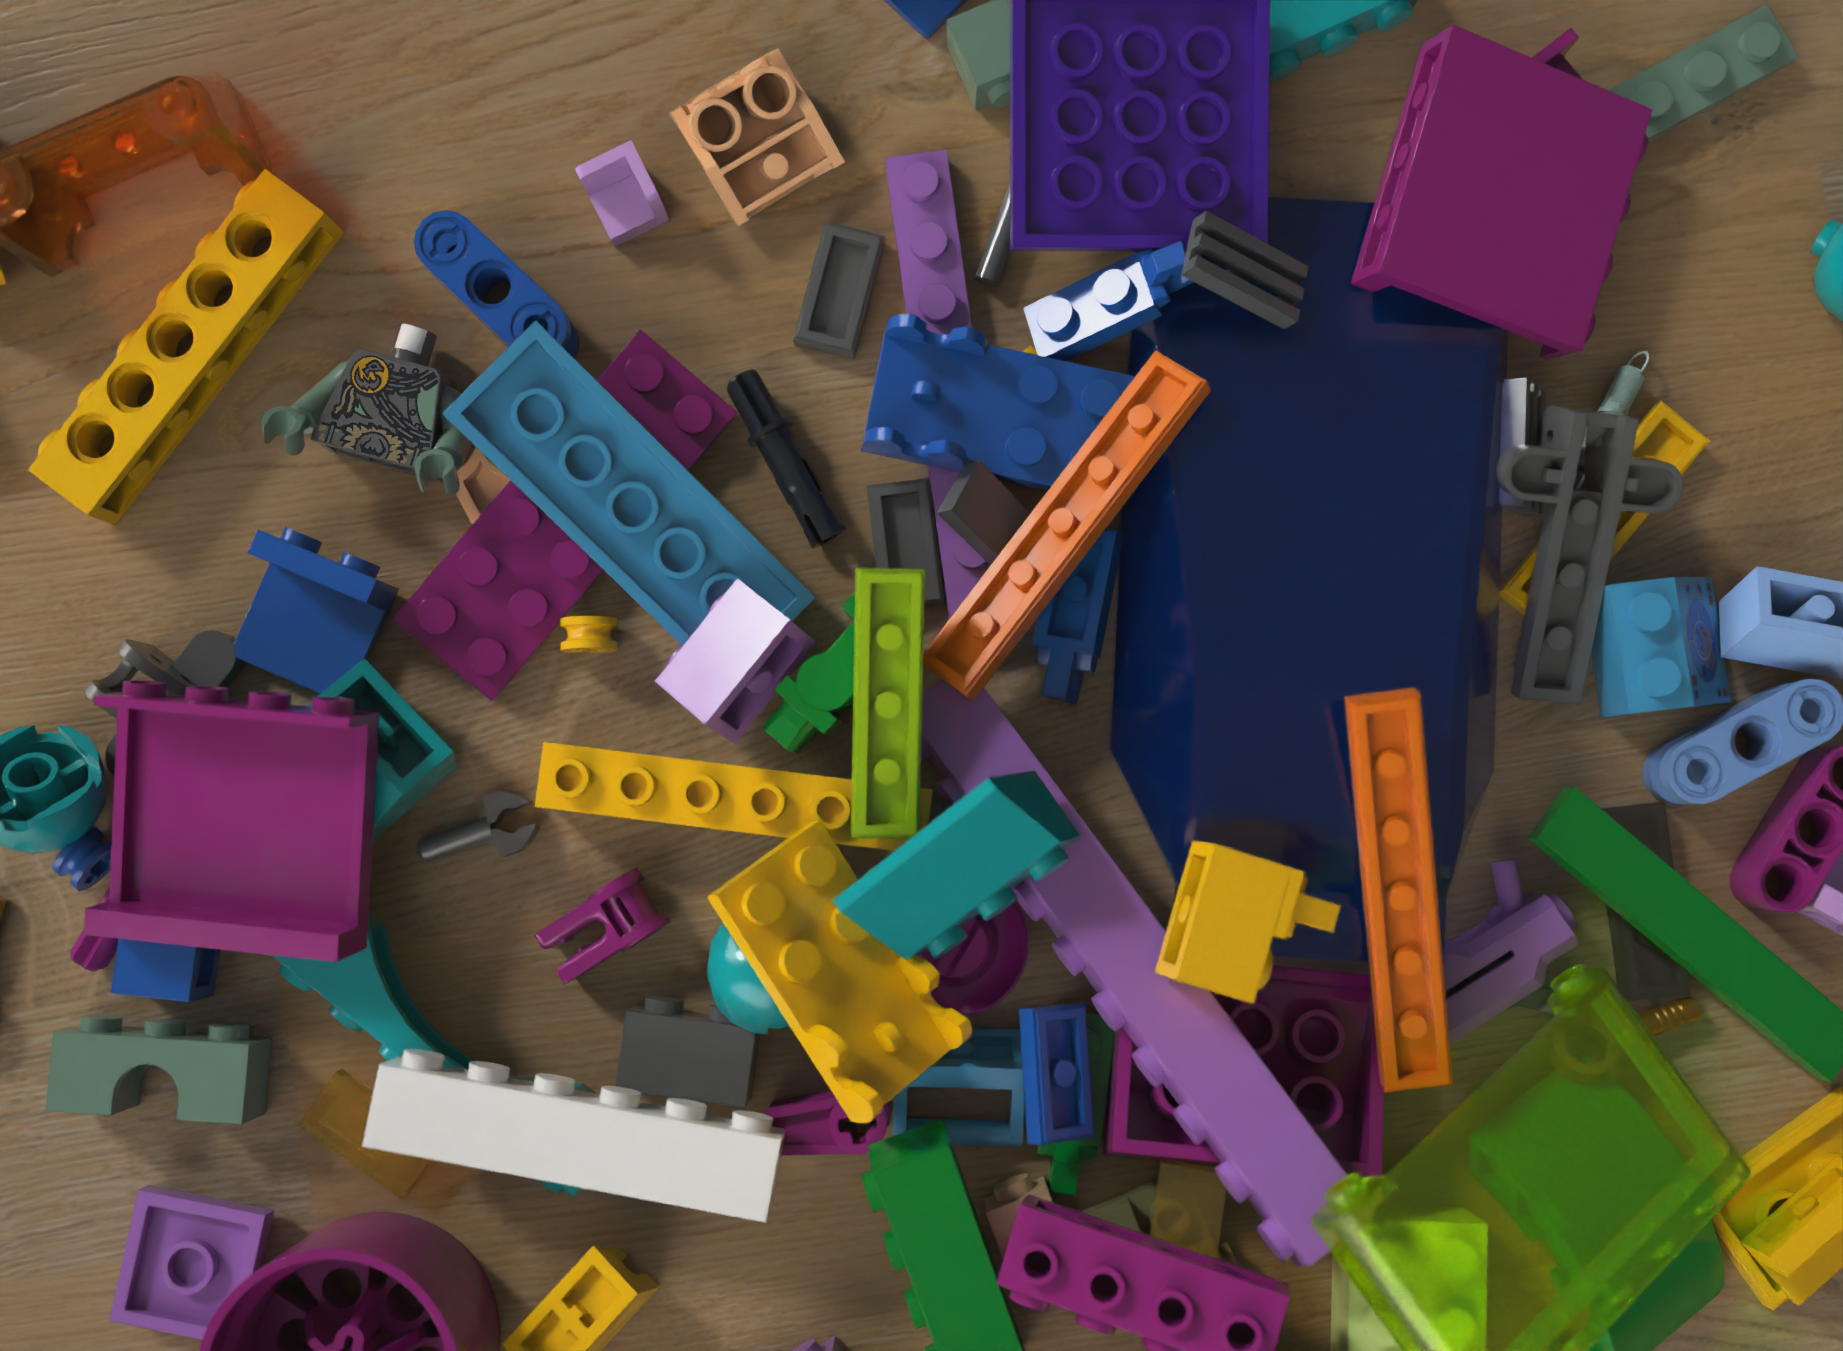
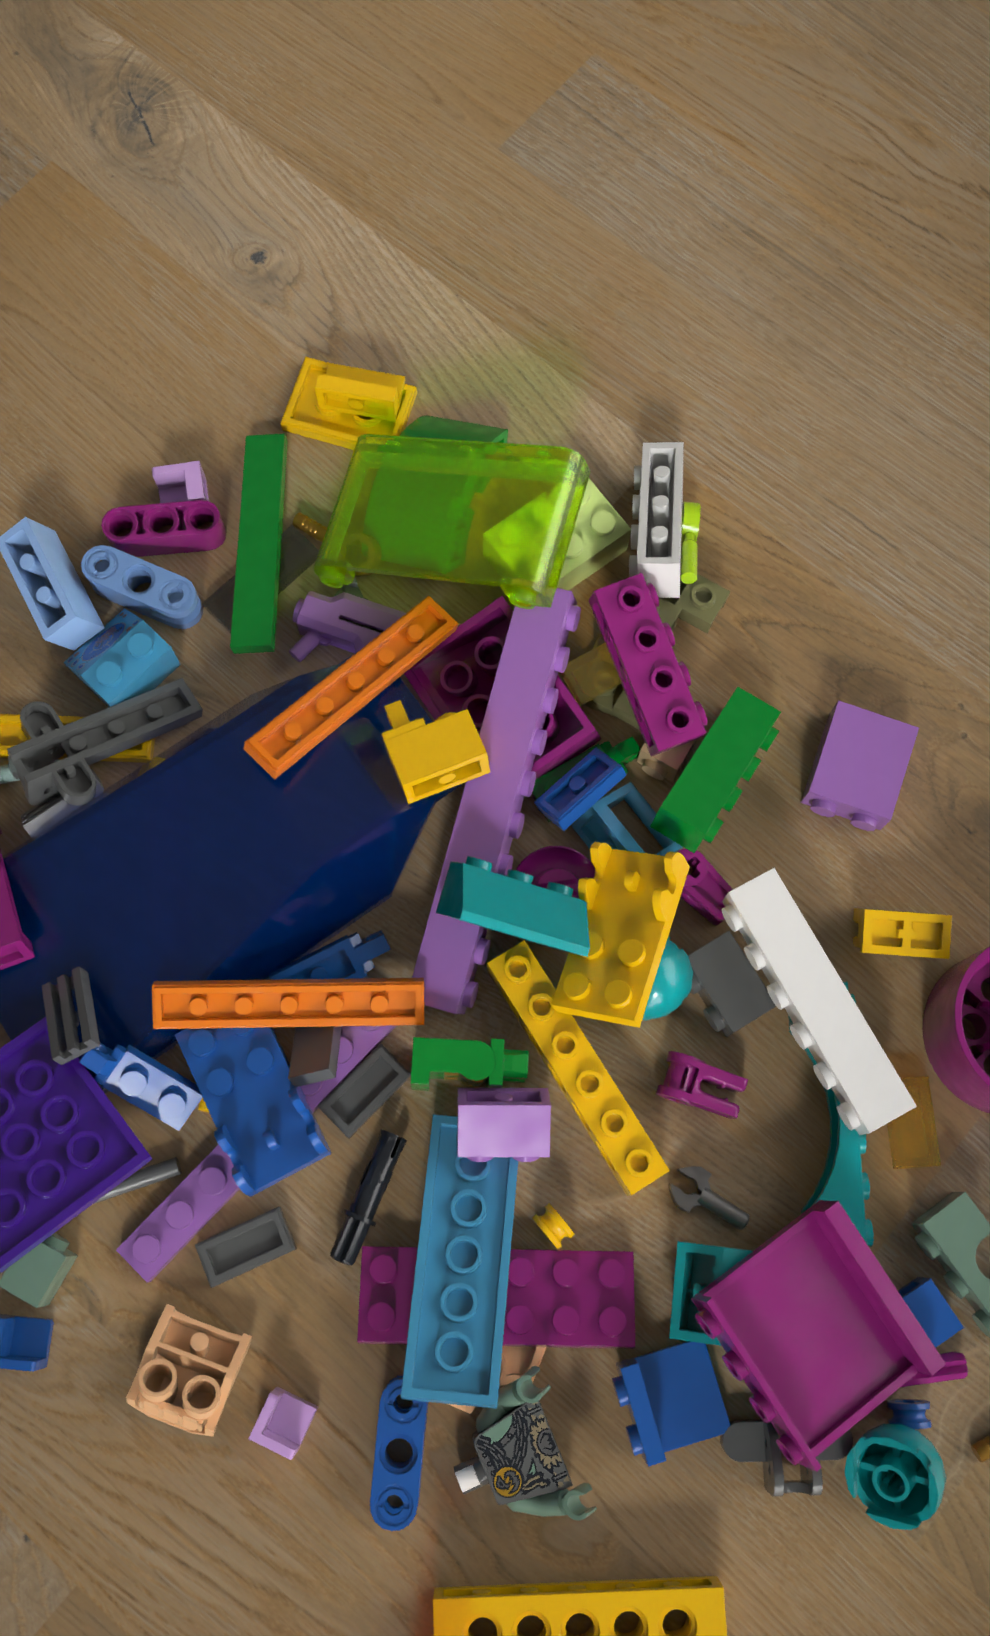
camera: 135 degrees left, 10 degrees down
(887, 702) = (459, 1018): lime tile -> none

